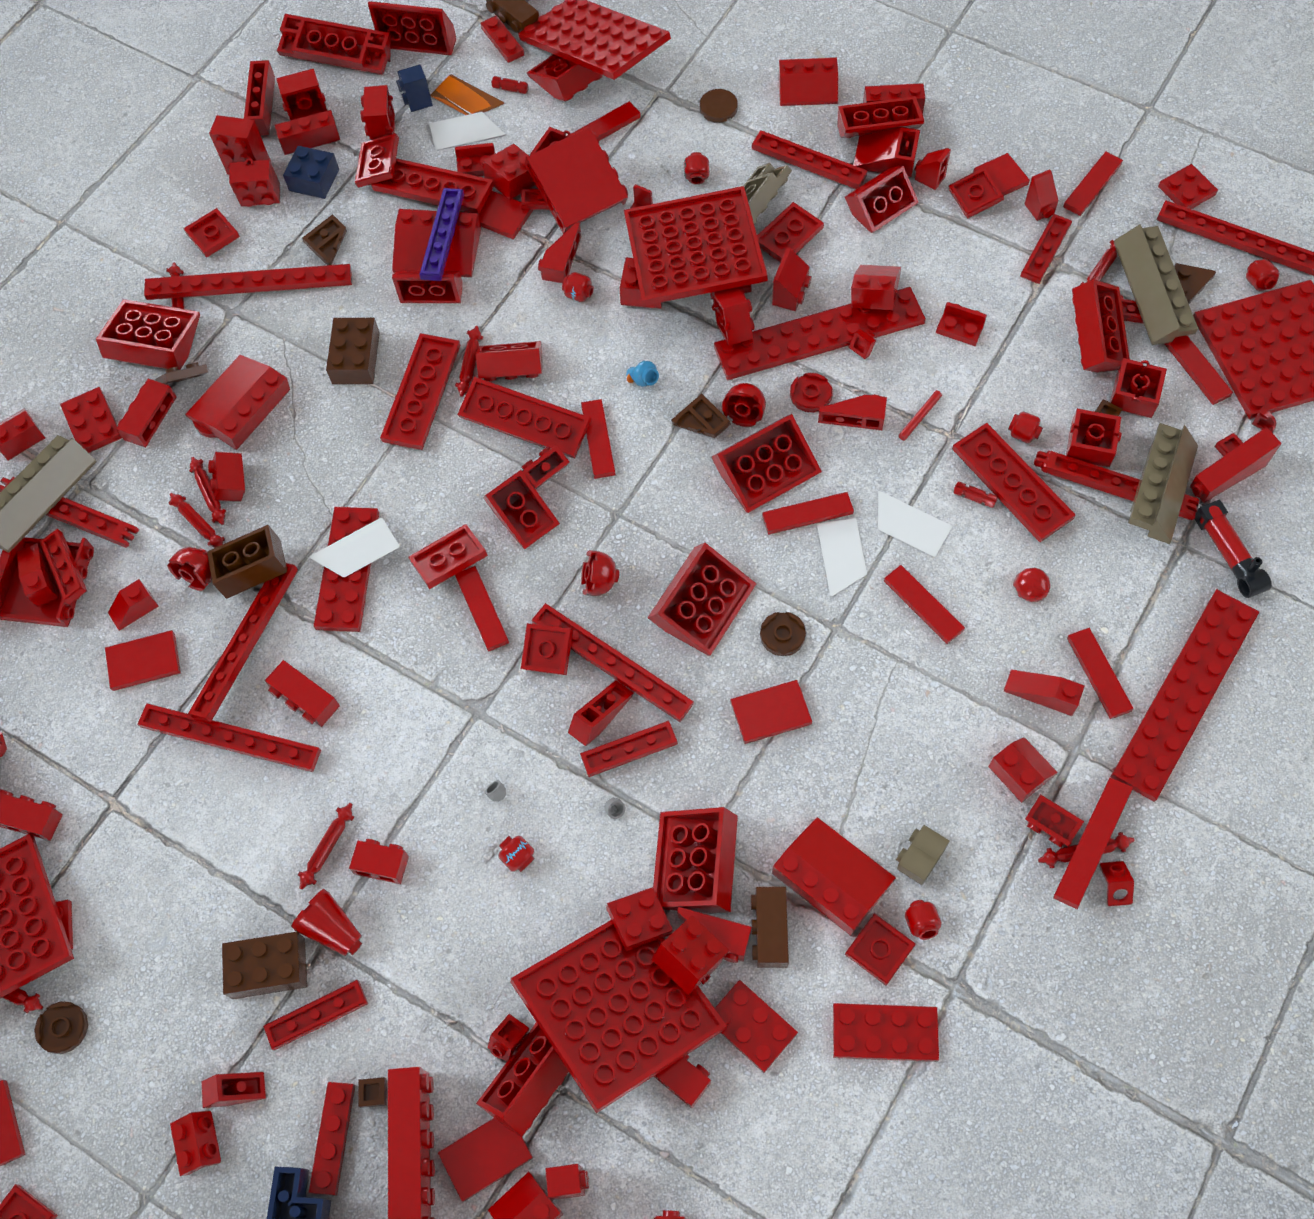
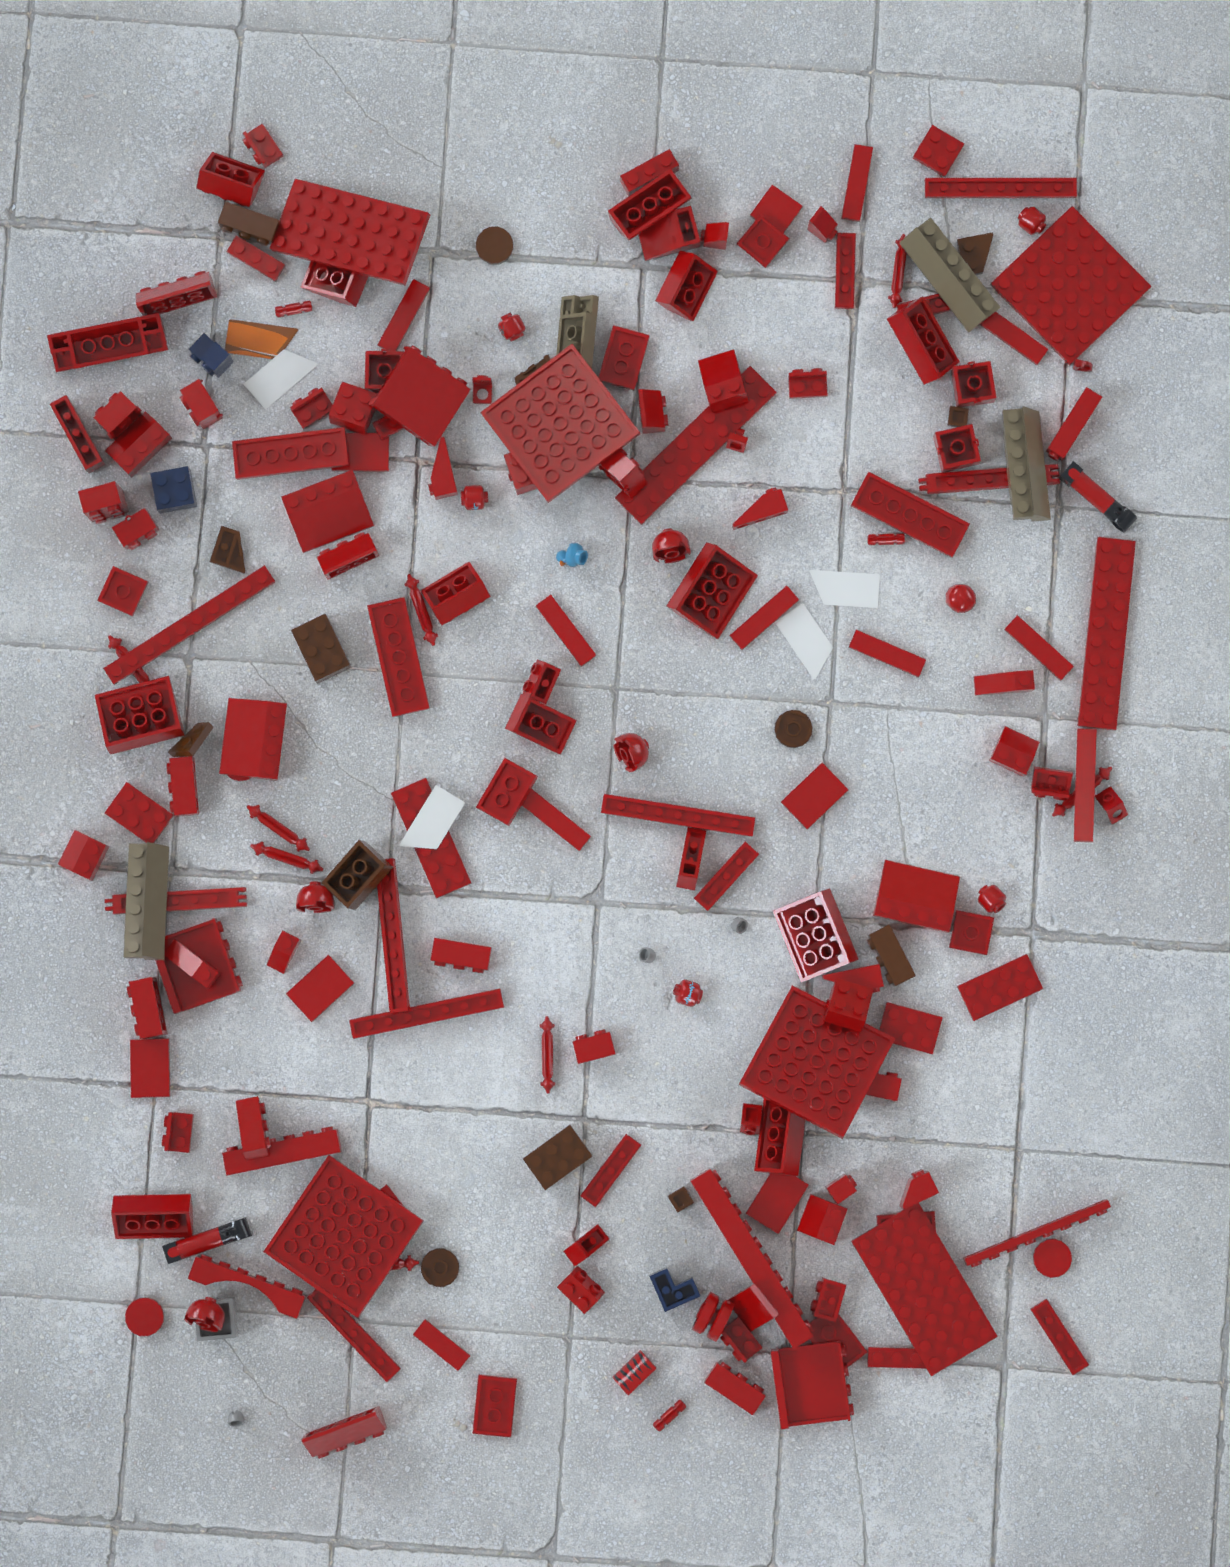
camera: 30 degrees left, 20 degrees up
(63, 566) = (213, 948): red tile -> none
(227, 476) = (291, 810): red brick -> none
(328, 924) = (585, 1108): red cone -> none
(332, 1139) = (670, 1240): red plate -> none
(377, 160) = (225, 450): red tile -> none
(441, 234) = (339, 510): dark purple tile -> none
(524, 417) = (498, 642): red plate -> none
(546, 649) = (626, 830): red plate -> none
(639, 919) = (799, 996): red plate -> none
(702, 418) = (640, 573): reddish brown wing -> none
(702, 599) = (720, 732): red slope -> none
(808, 81) = (563, 185): red slope -> none
(809, 159) = (603, 271): red plate -> none
(811, 392) = (715, 505): red tile -> none
(920, 415) = (812, 486): red bar -> none
(922, 854) = (971, 852): dark tan brick -> none
(1025, 427) = (900, 461): red head -> none
(1228, 444) = (1065, 400): red tile -> none

